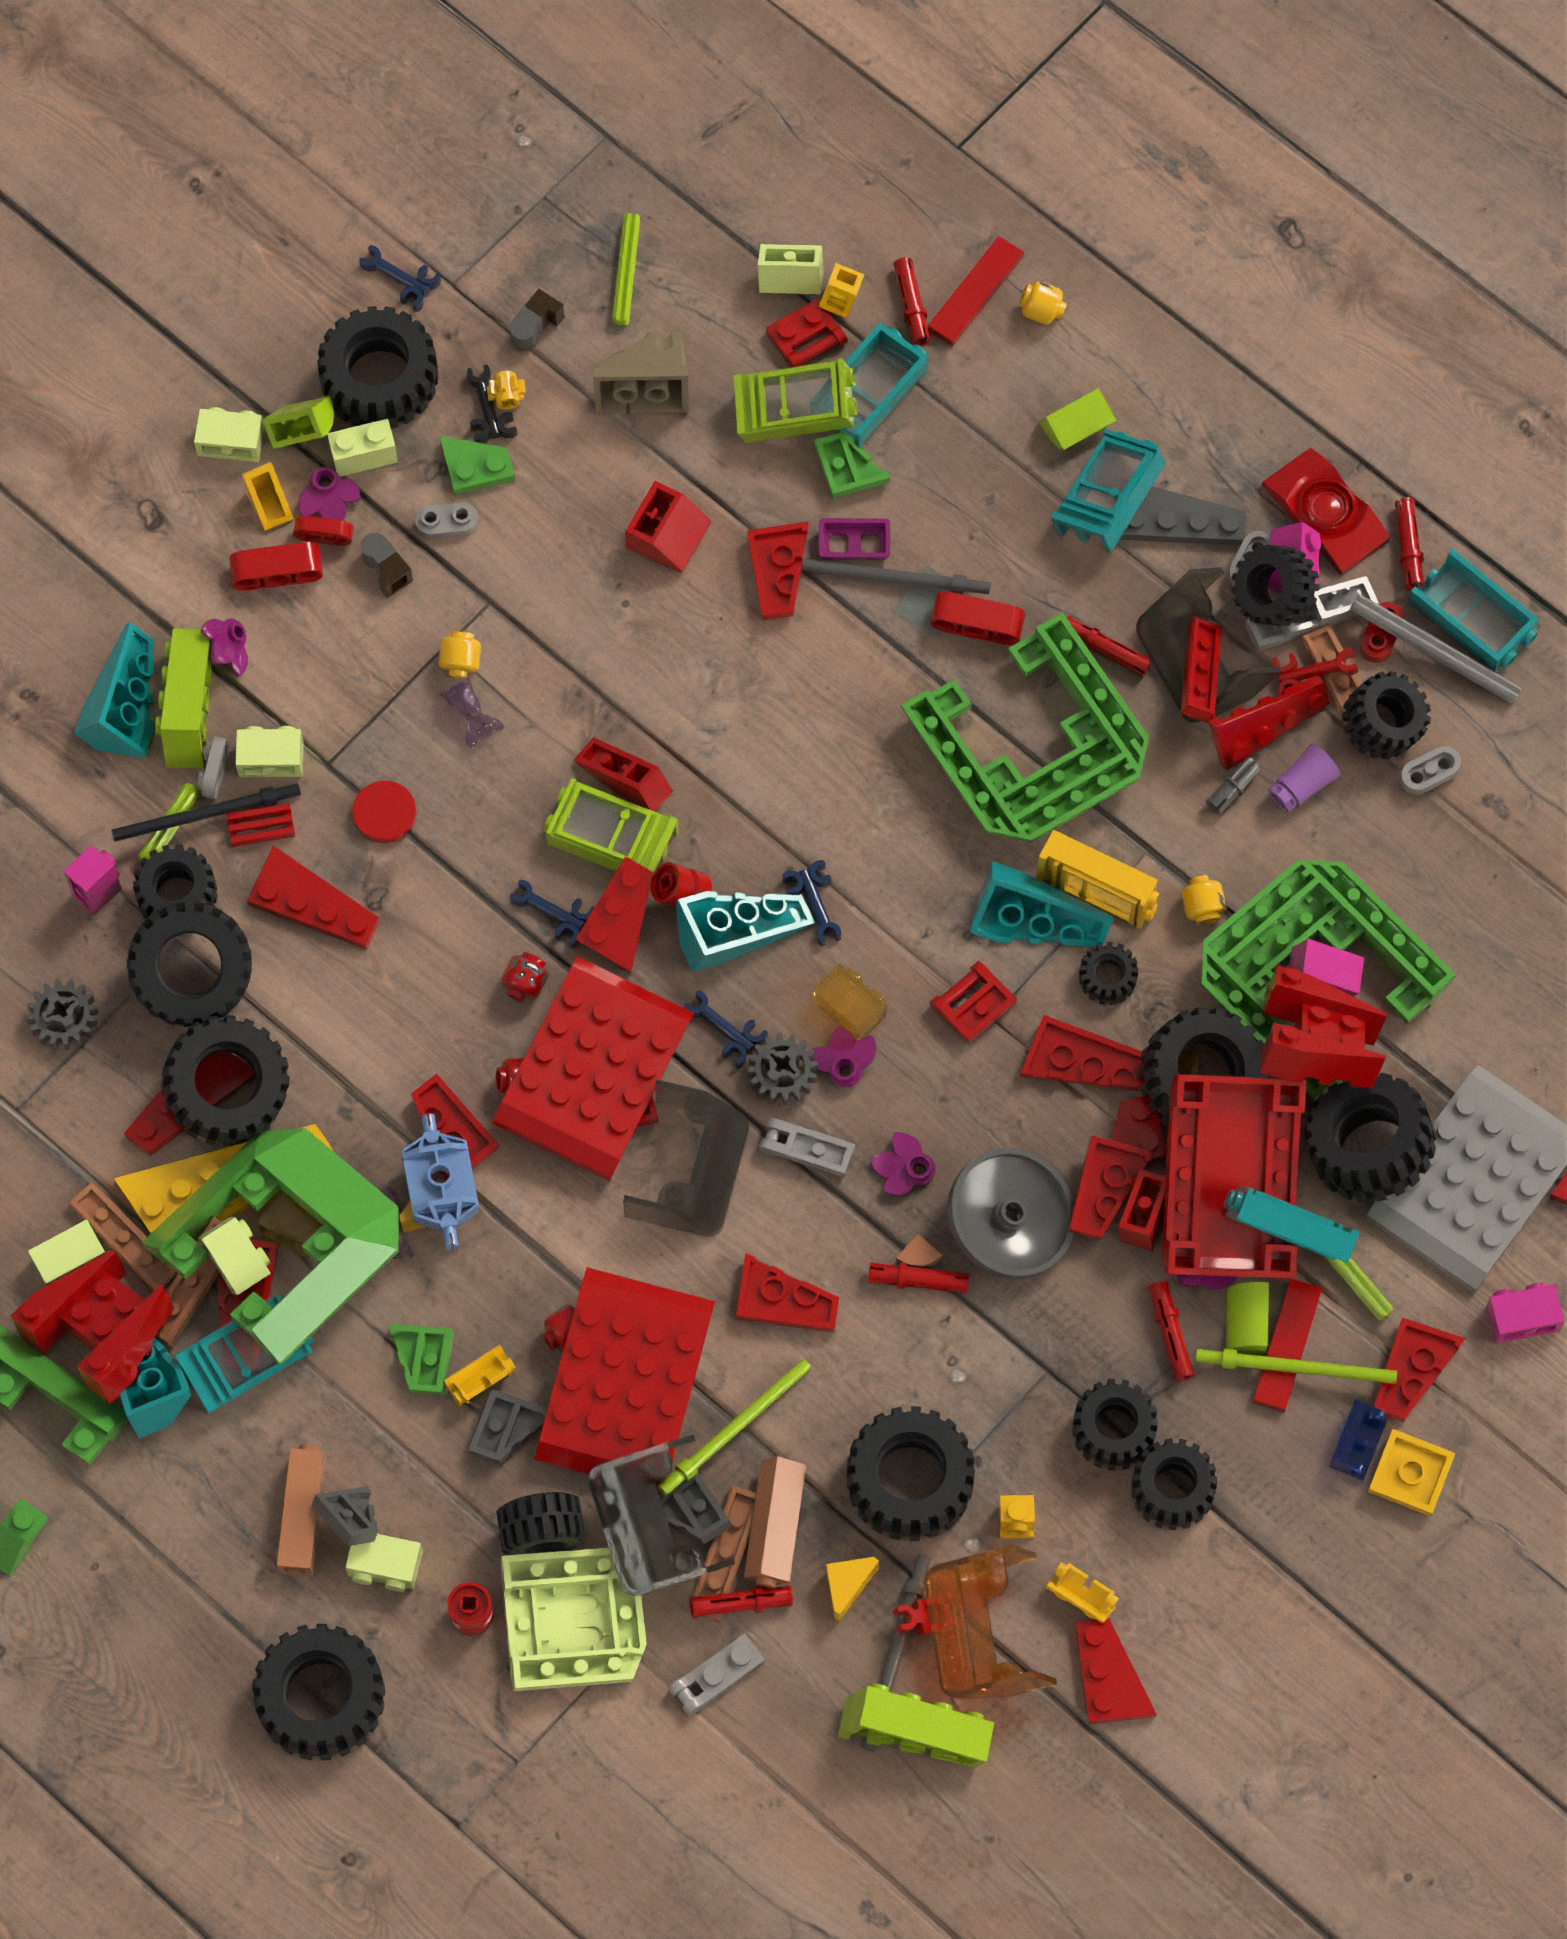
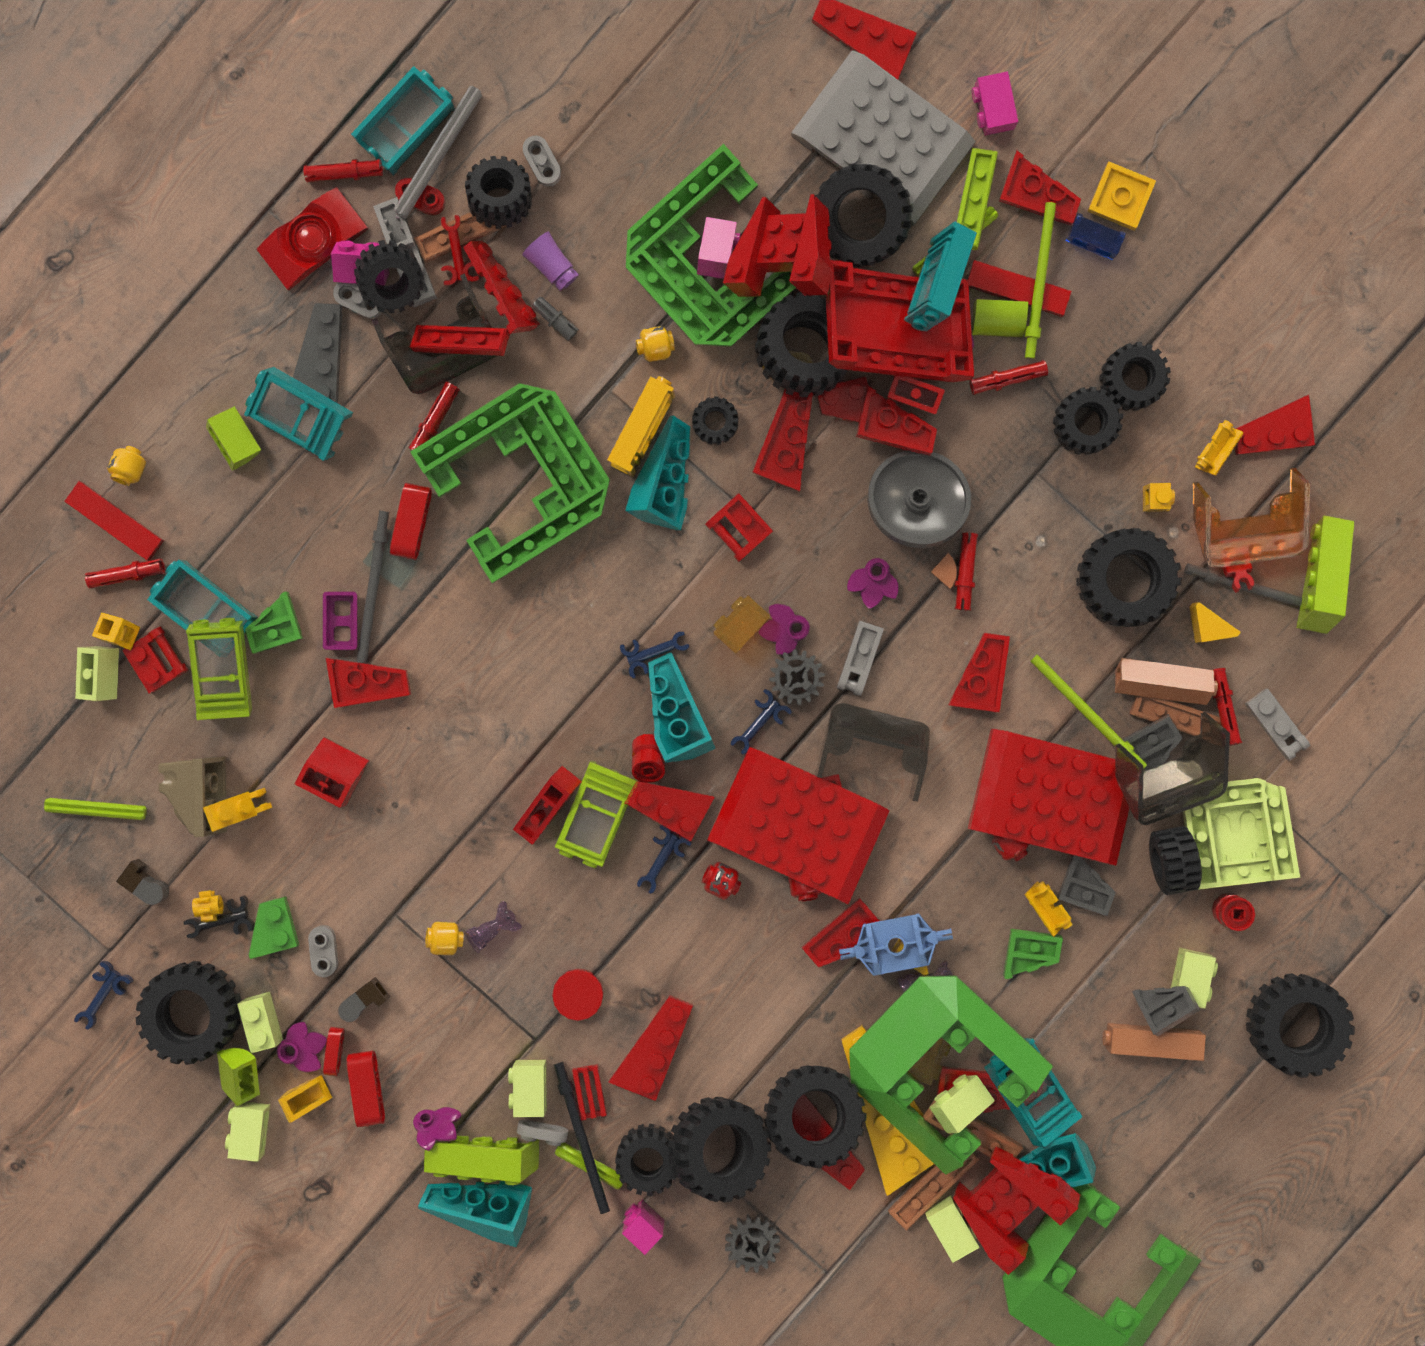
camera: 90 degrees left, 20 degrees up
(624, 416) = (234, 809): none -> yellow hinge
(1401, 1287) = (977, 191): none -> lime tile

